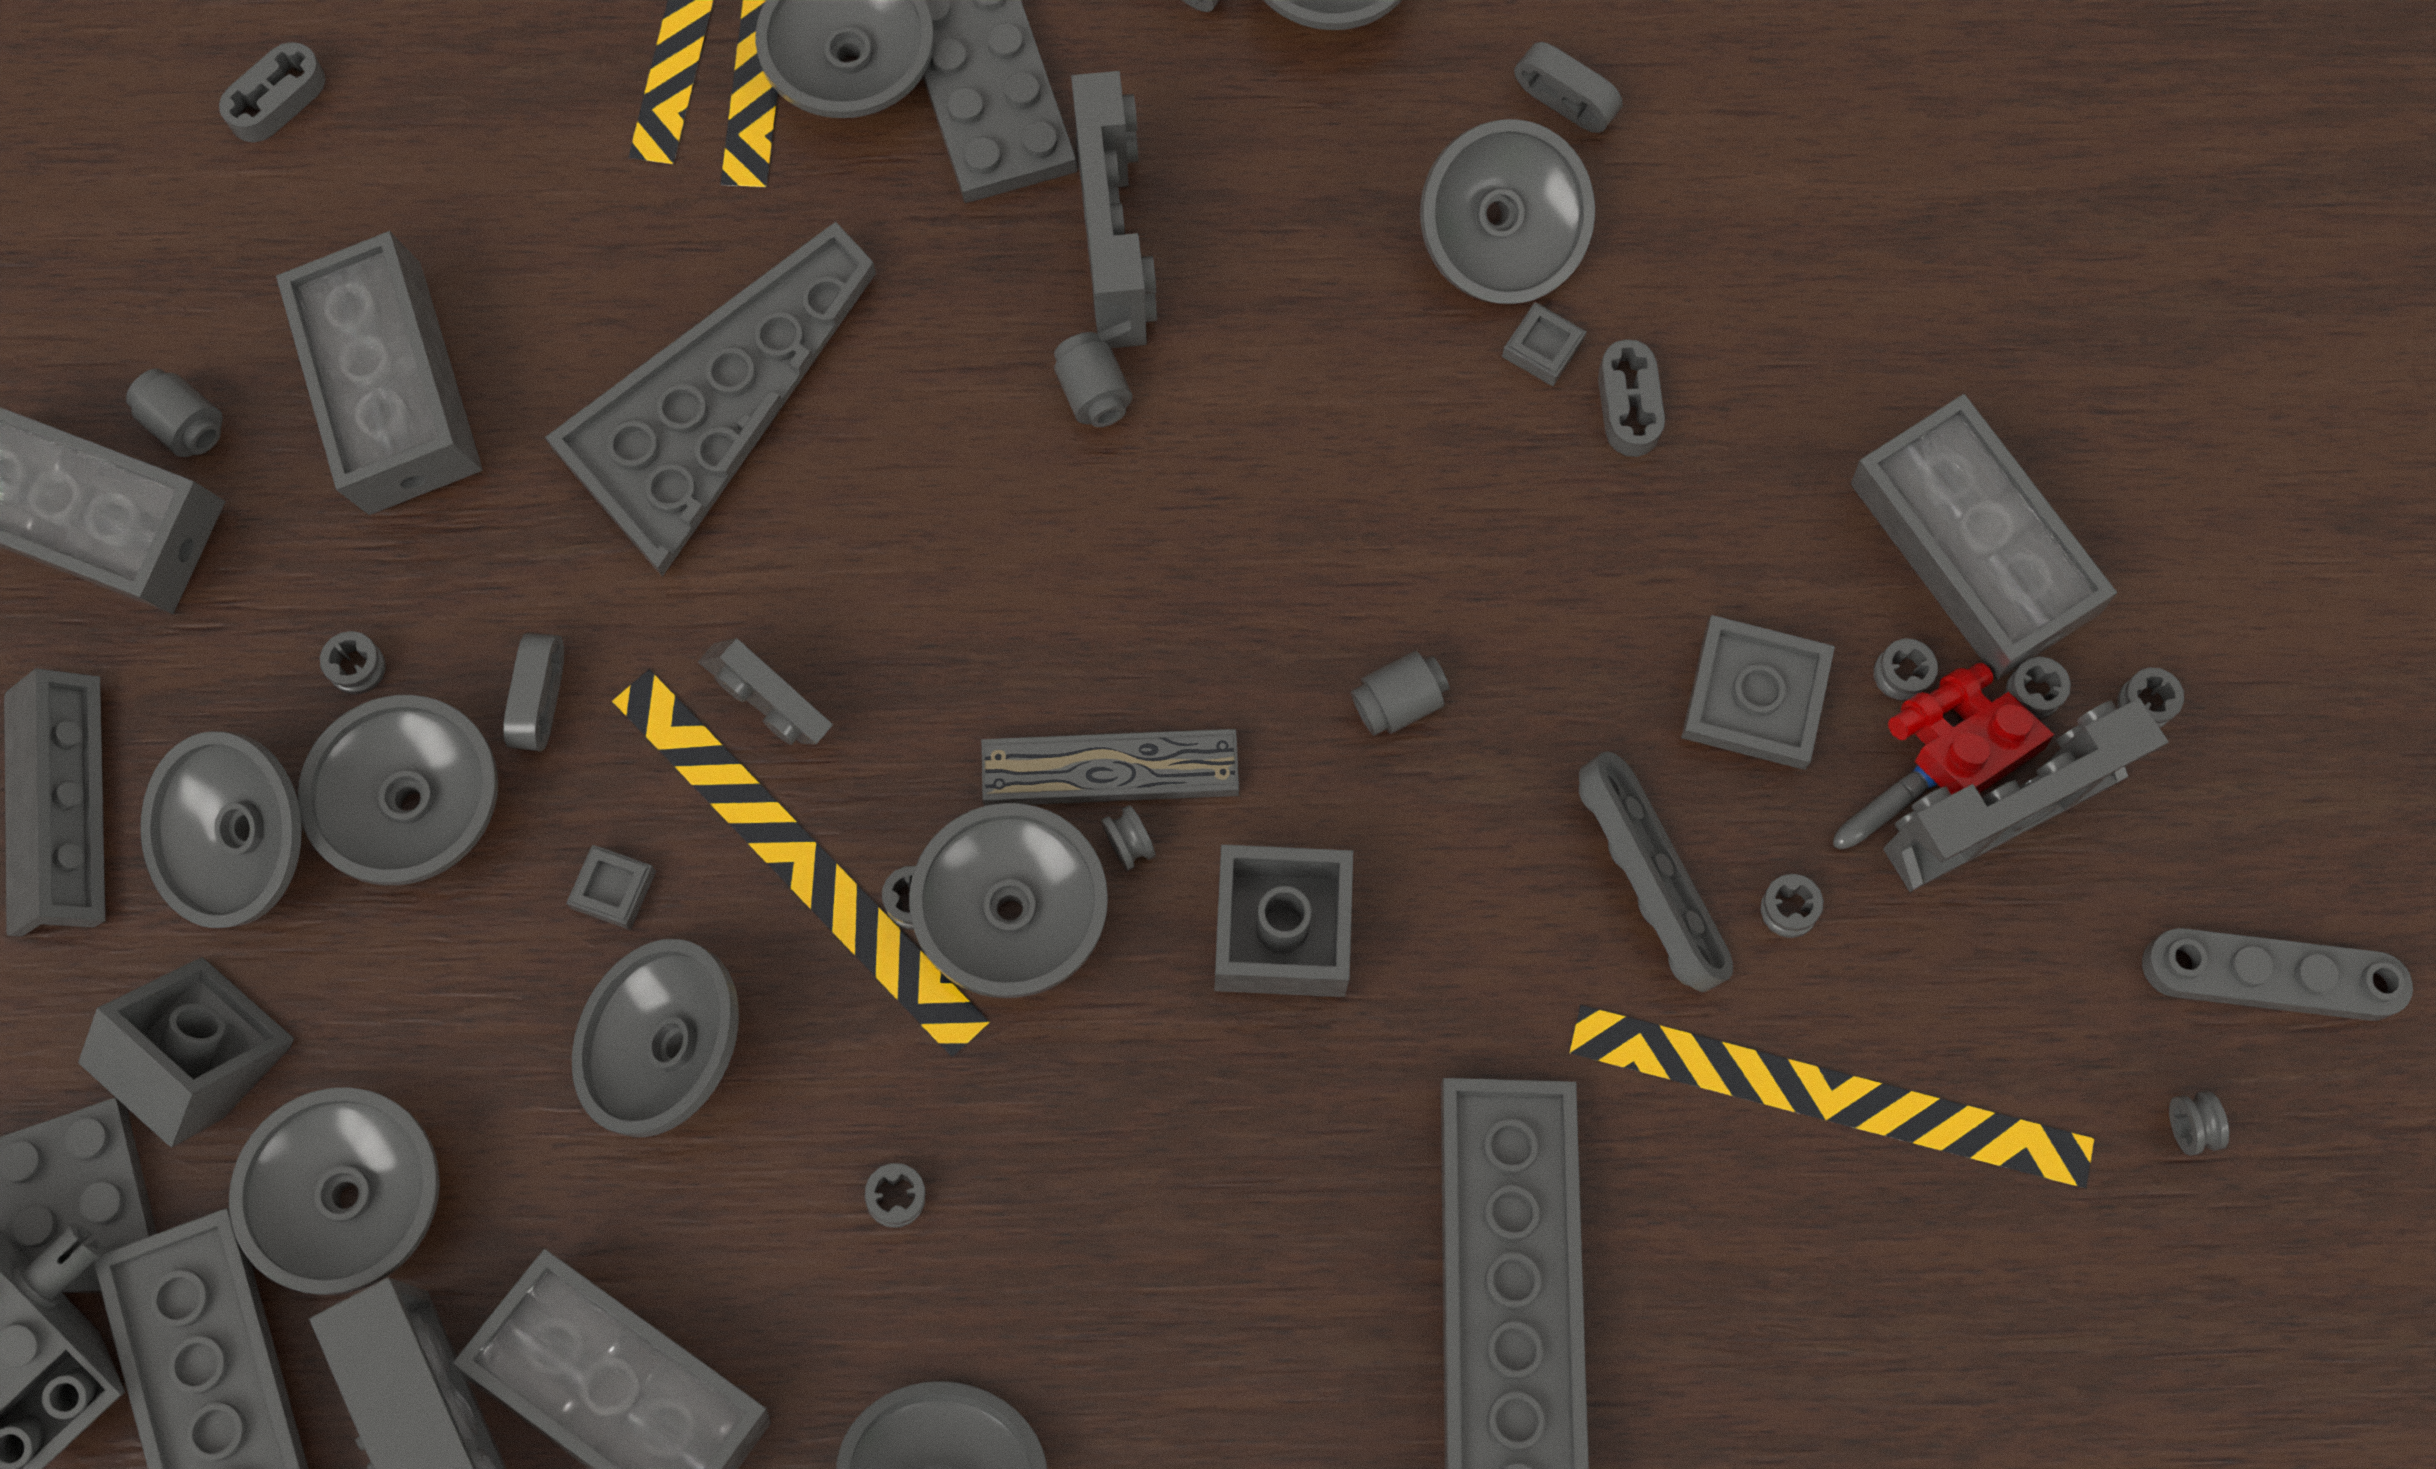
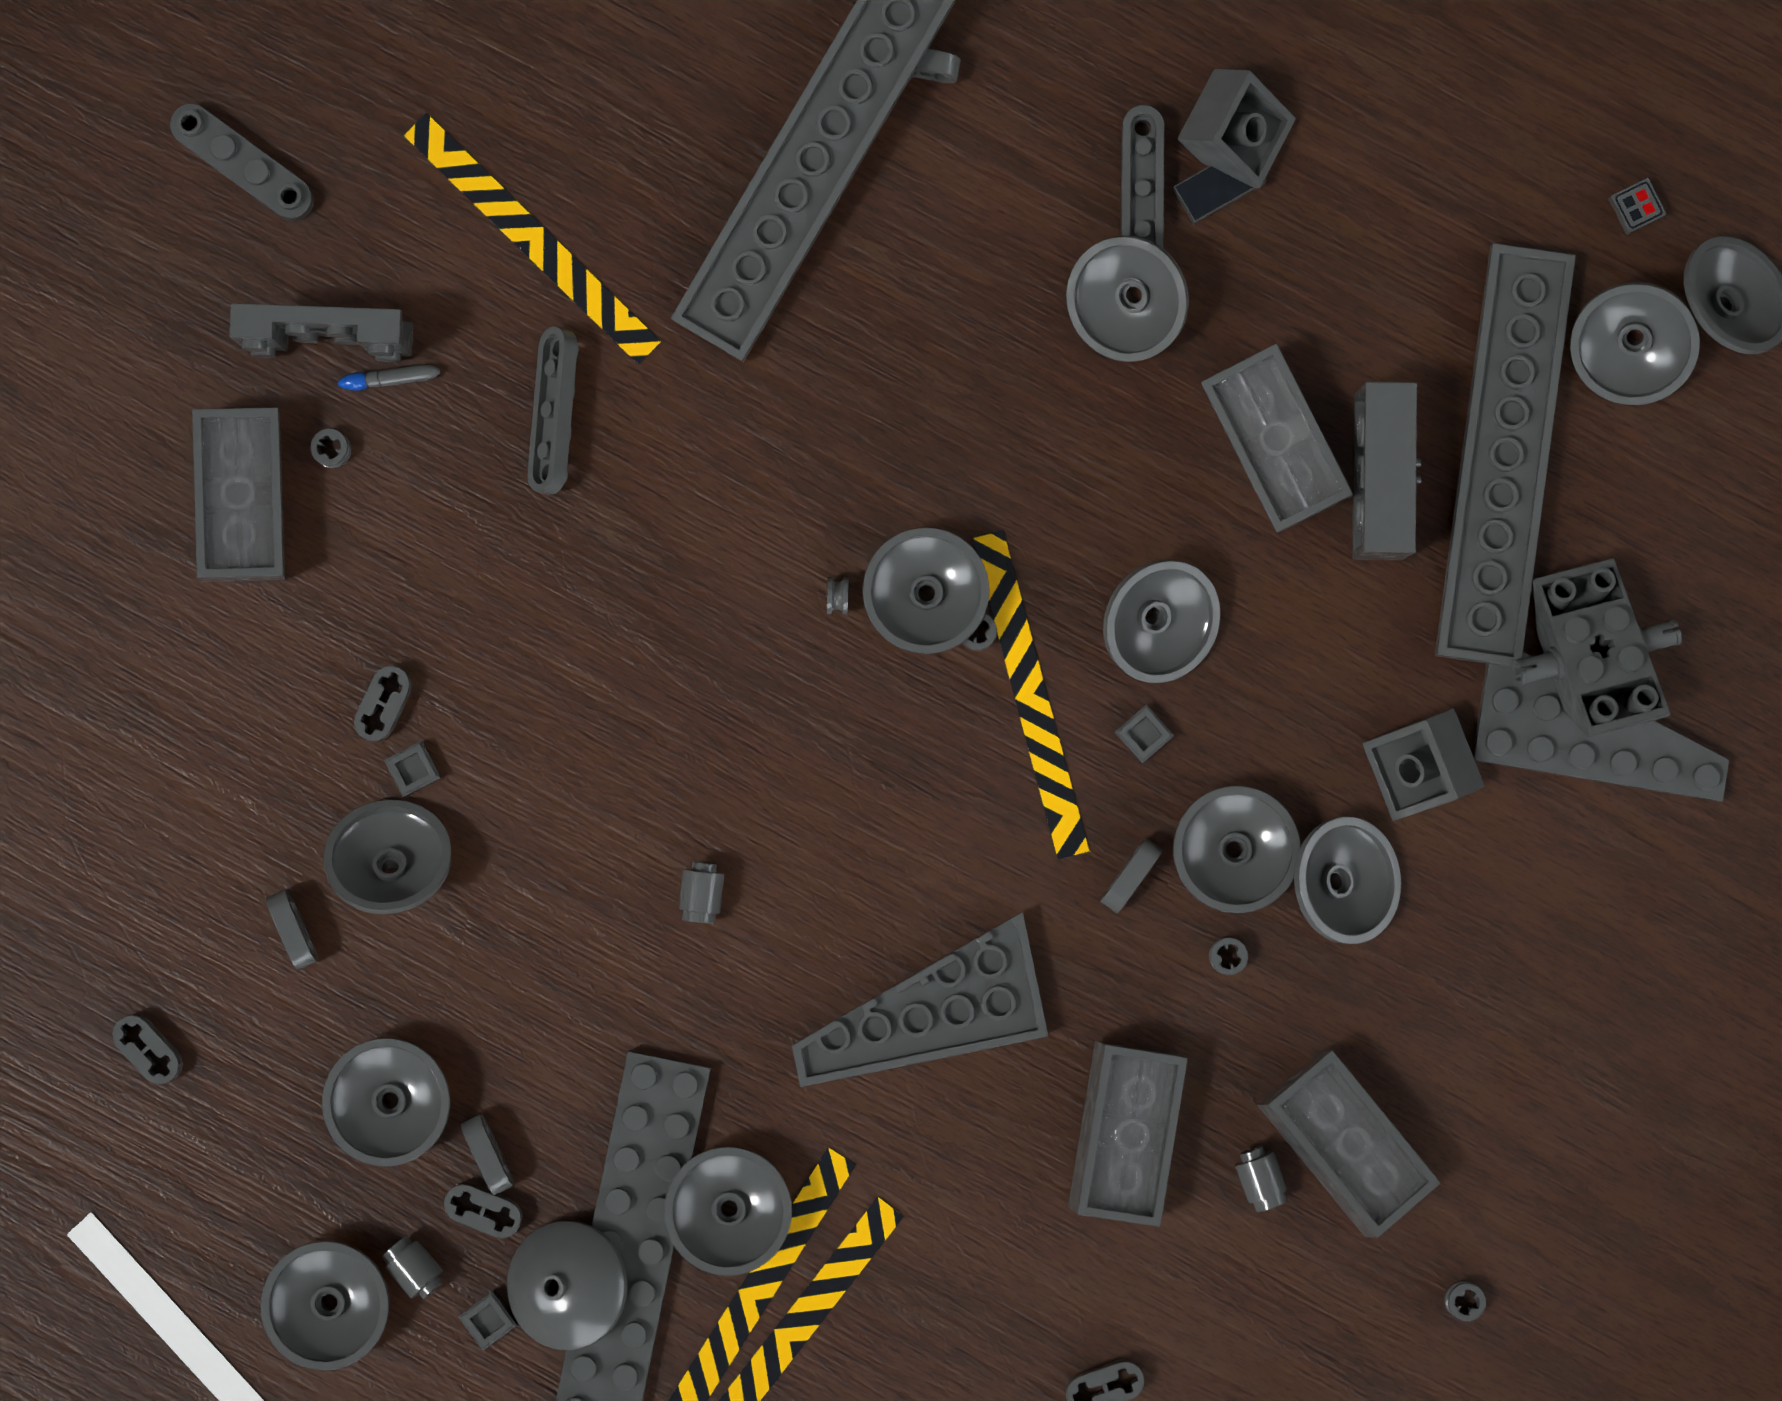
camera: 145 degrees left, 15 degrees up
(53, 802) = (1438, 961): dark grey panel -> none
(292, 1183) = (1404, 625): dark grey dish -> none
(753, 681) = (1005, 805): dark grey wing -> none
(892, 1174) = (1079, 457): dark grey bush -> none
(1105, 144) = (606, 1045): dark grey piece -> none
(1110, 767) = (824, 646): dark grey tile -> none
(1284, 920) = (779, 494): dark grey brick -> none
(1400, 693) = (633, 594): dark grey brick -> none
(1758, 692) = (426, 480): dark grey plate -> none
(1795, 924) = (493, 340): dark grey bush -> none
(1982, 747) = (319, 375): red plate -> none
(2041, 670) = (271, 385): dark grey bush -> none
(2160, 682) = (205, 364): dark grey bush -> none
(2199, 1123) = (344, 108): dark grey bush -> none

